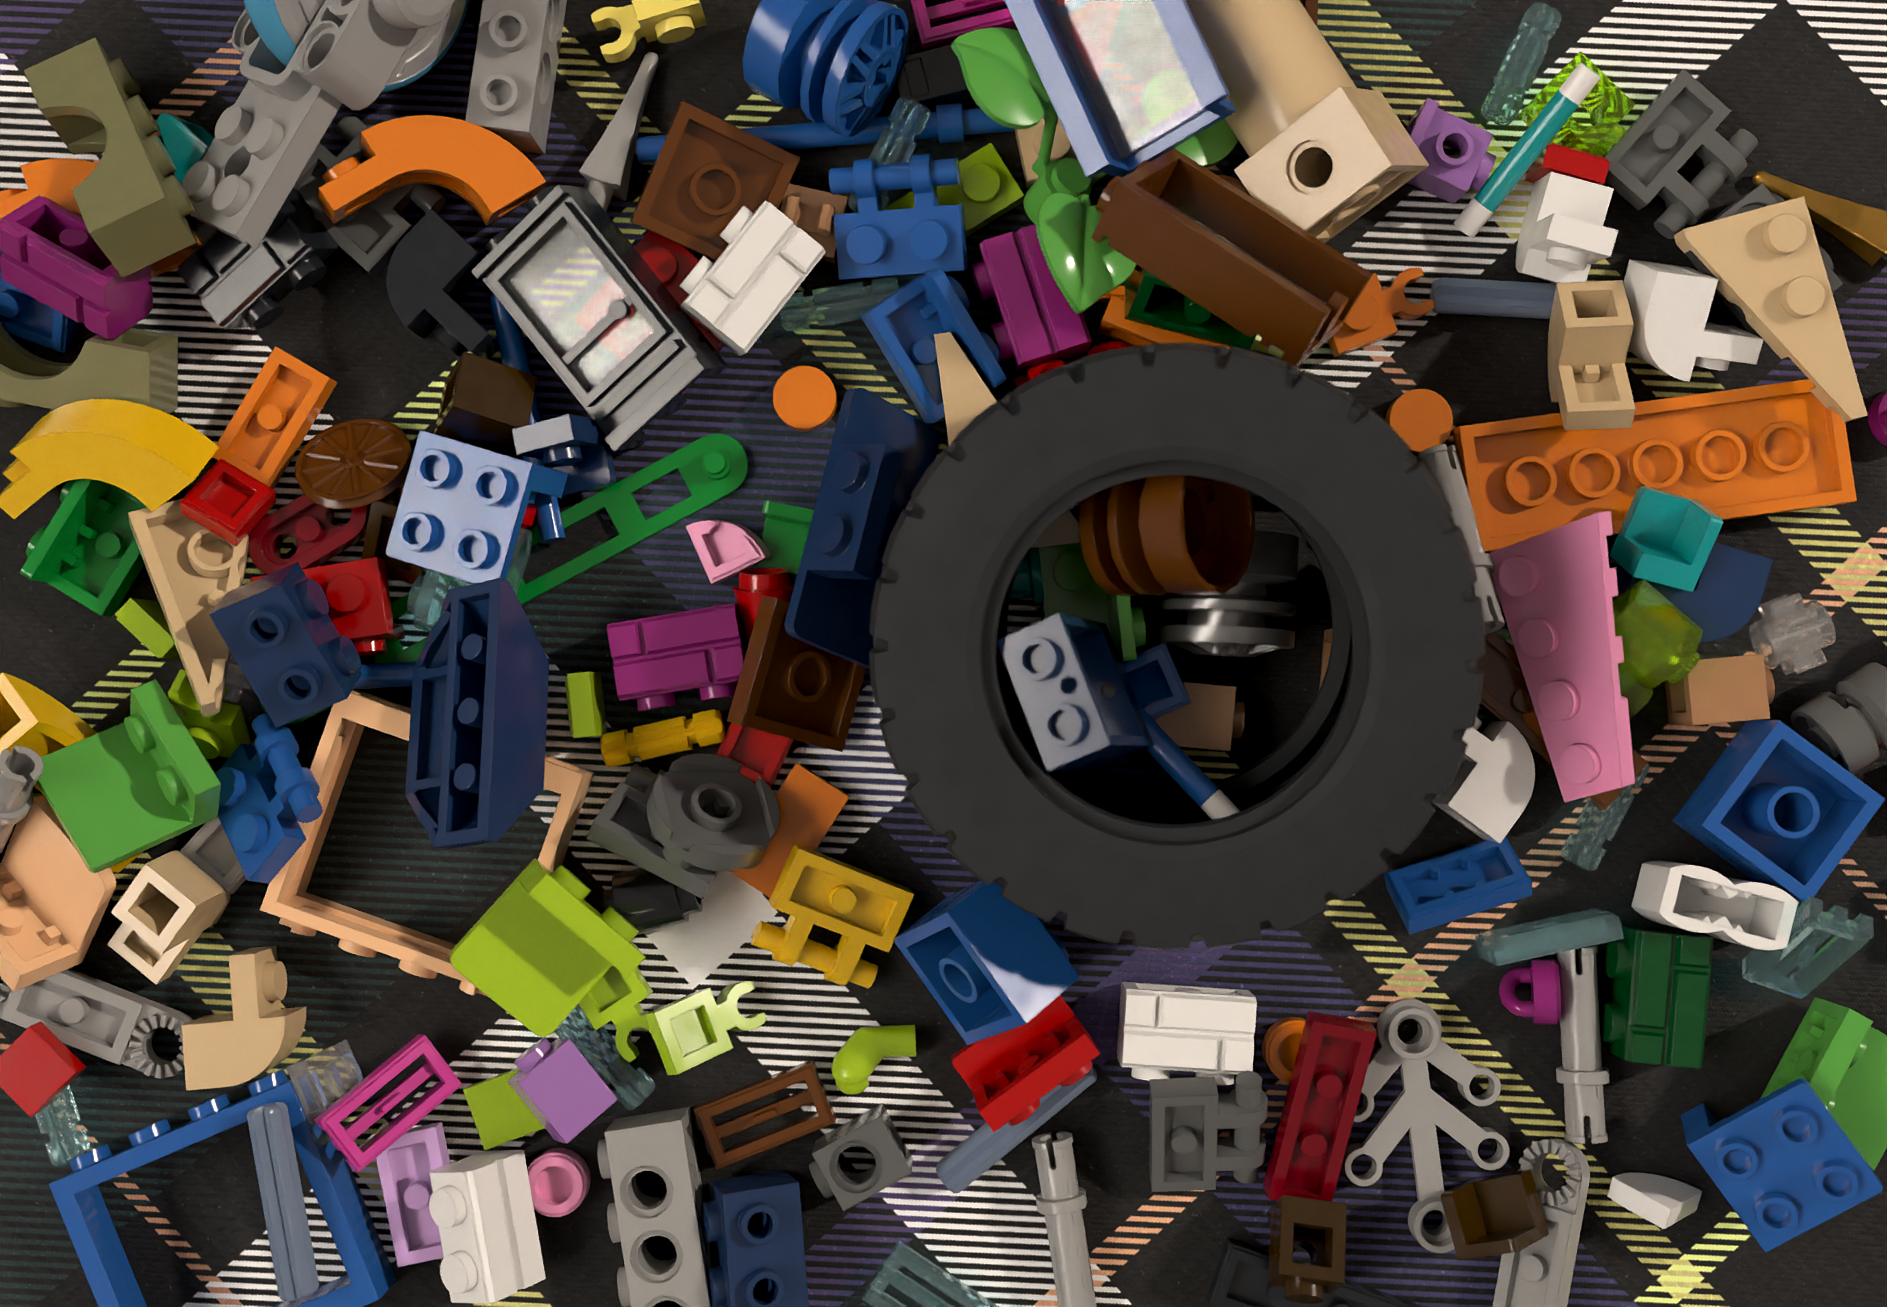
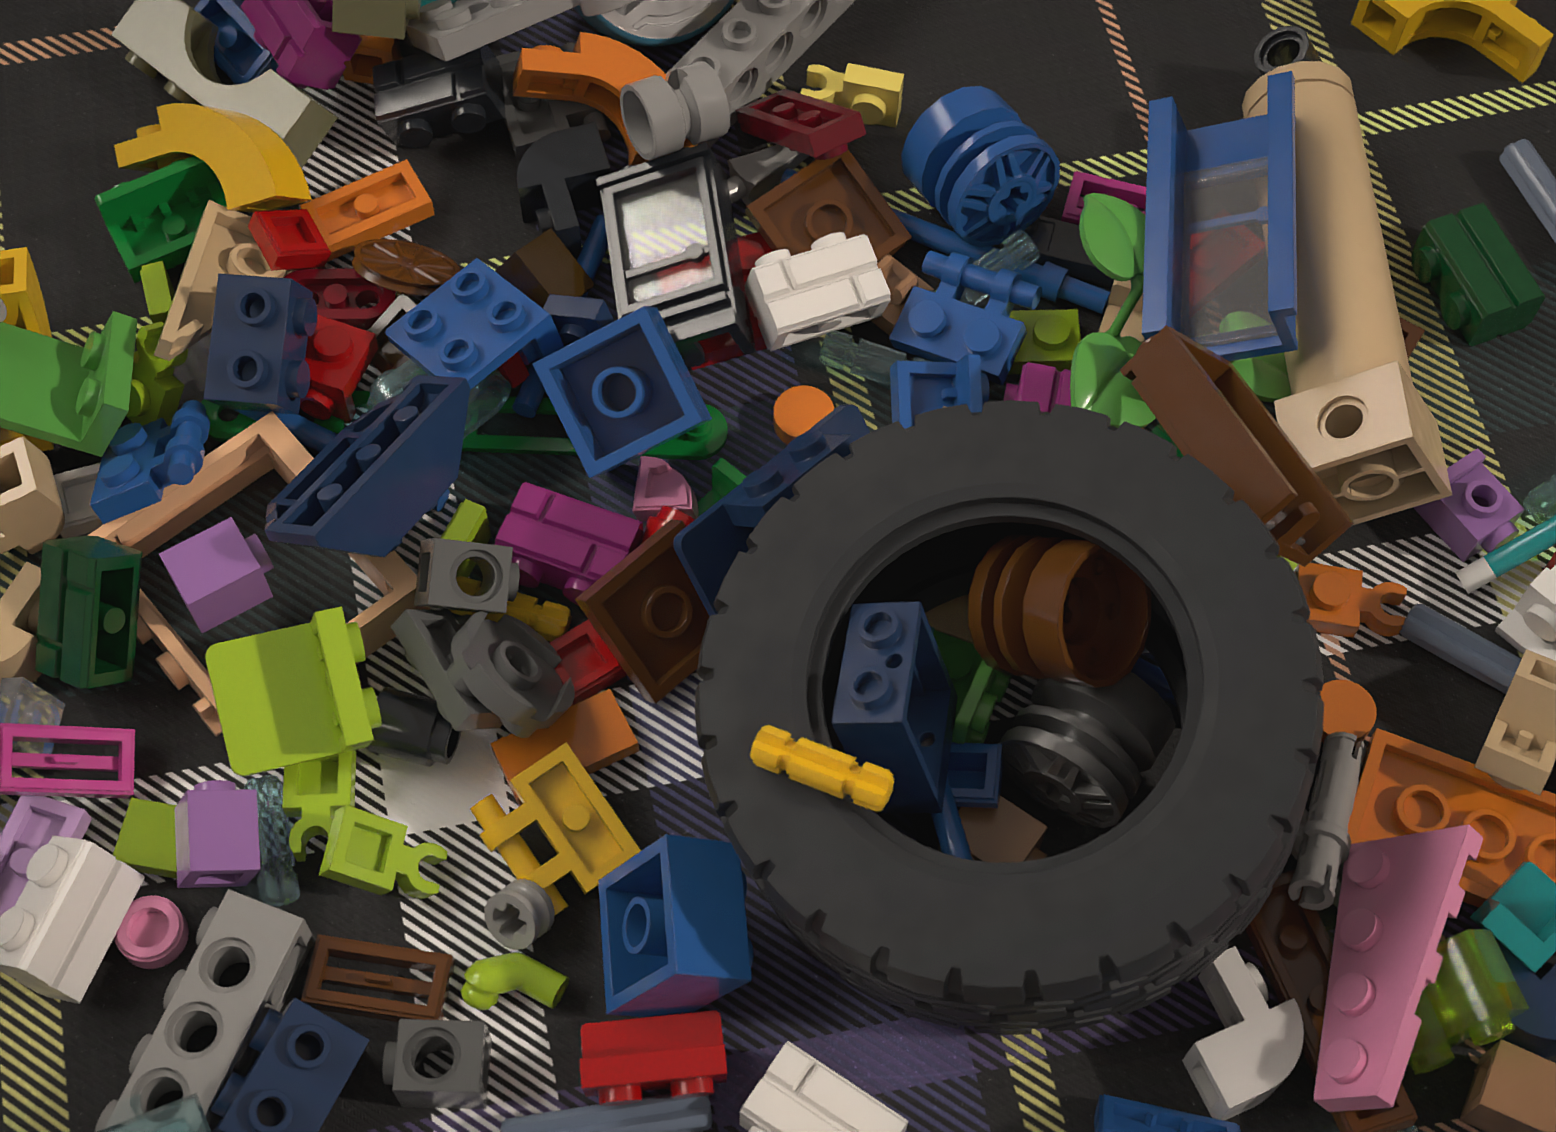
camera: 25 degrees right, 25 degrees down
(316, 971) = (88, 611): none -> dark green brick
(405, 881) = (219, 573): none -> medium lavender brick
(507, 170) = (668, 111): none -> light grey wheel
(593, 750) = (437, 576): none -> dark grey brick
(628, 98) = (802, 123): none -> dark red plate
(642, 494) = (622, 391): none -> blue brick
(845, 1002) = (531, 906): none -> light grey bush
(1064, 820) = (822, 768): none -> yellow axle

